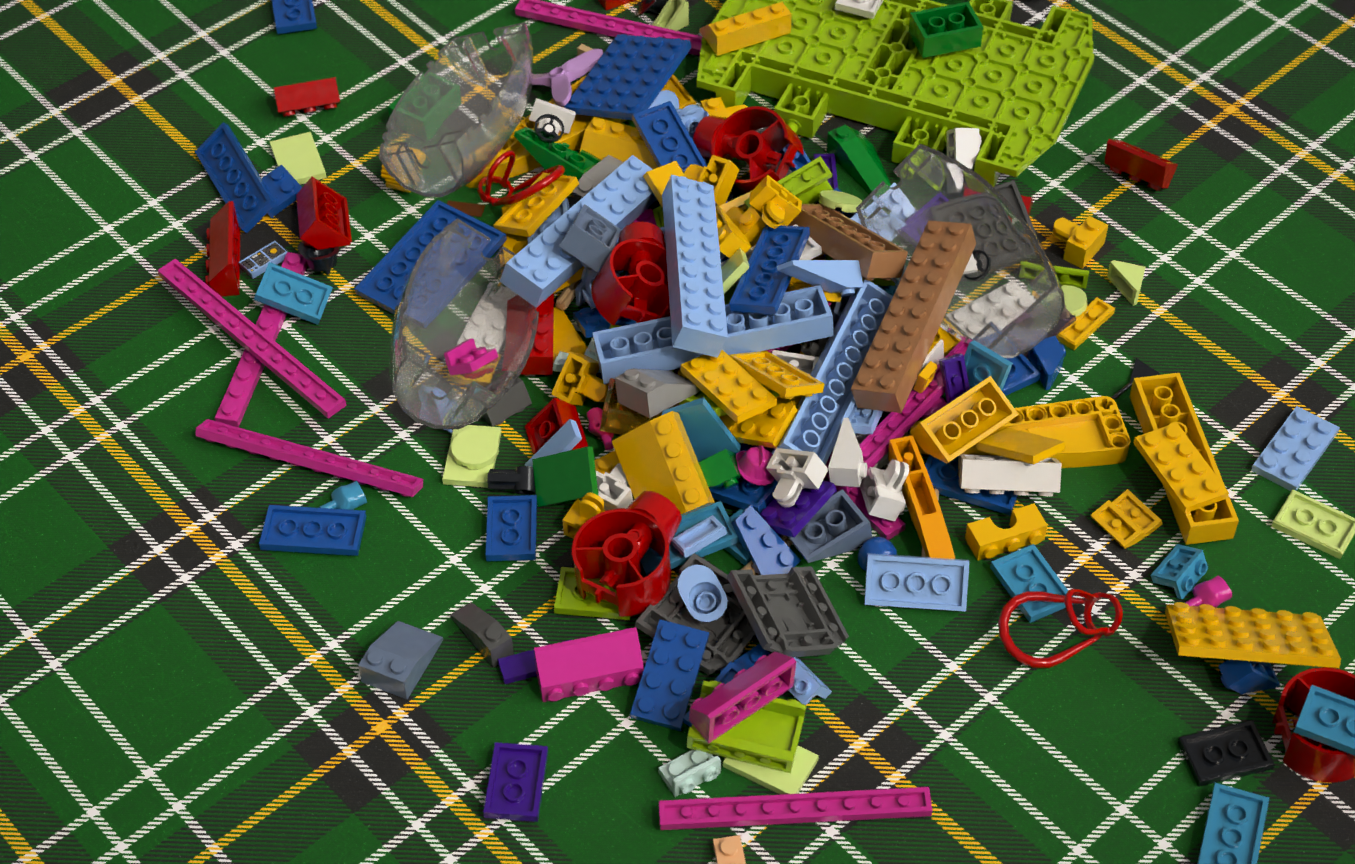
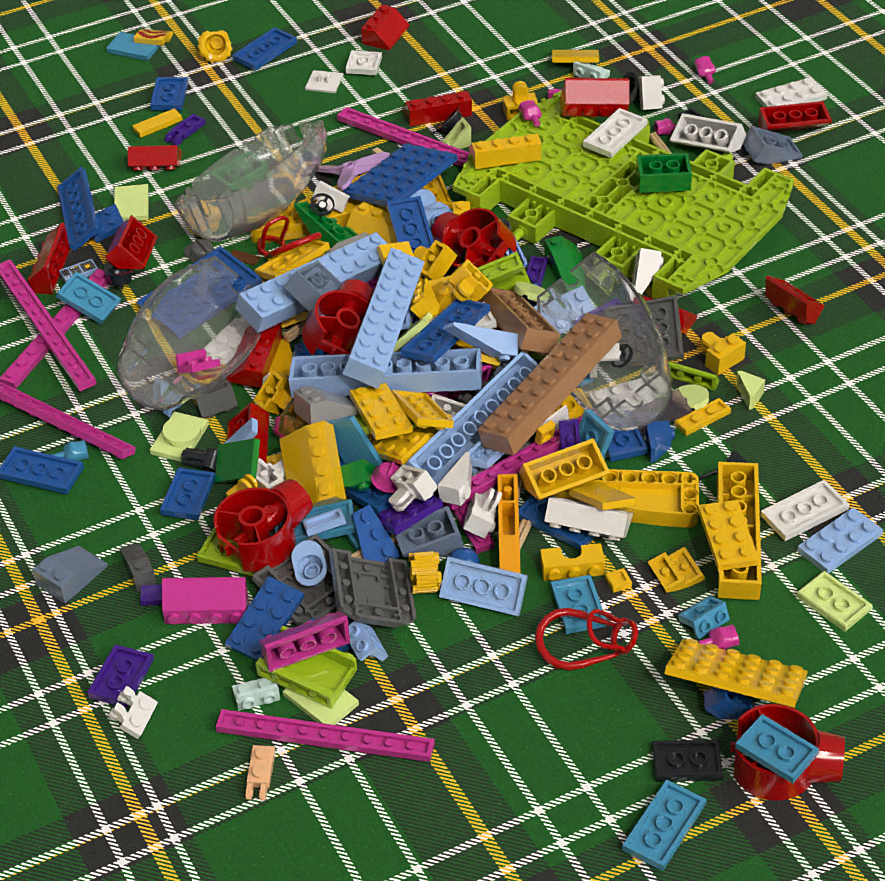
camera: 15 degrees right, 5 degrees down
(291, 49) = (157, 123): none -> yellow tile
(330, 53) = (184, 129): none -> dark purple hinge
(407, 209) = (198, 249): none -> dark grey piece
(557, 826) = (139, 713): none -> white plate
(842, 577) = (424, 572): none -> yellow brick
(1064, 544) = (618, 580): none -> yellow tile
(1245, 419) = (804, 510): none -> white plate

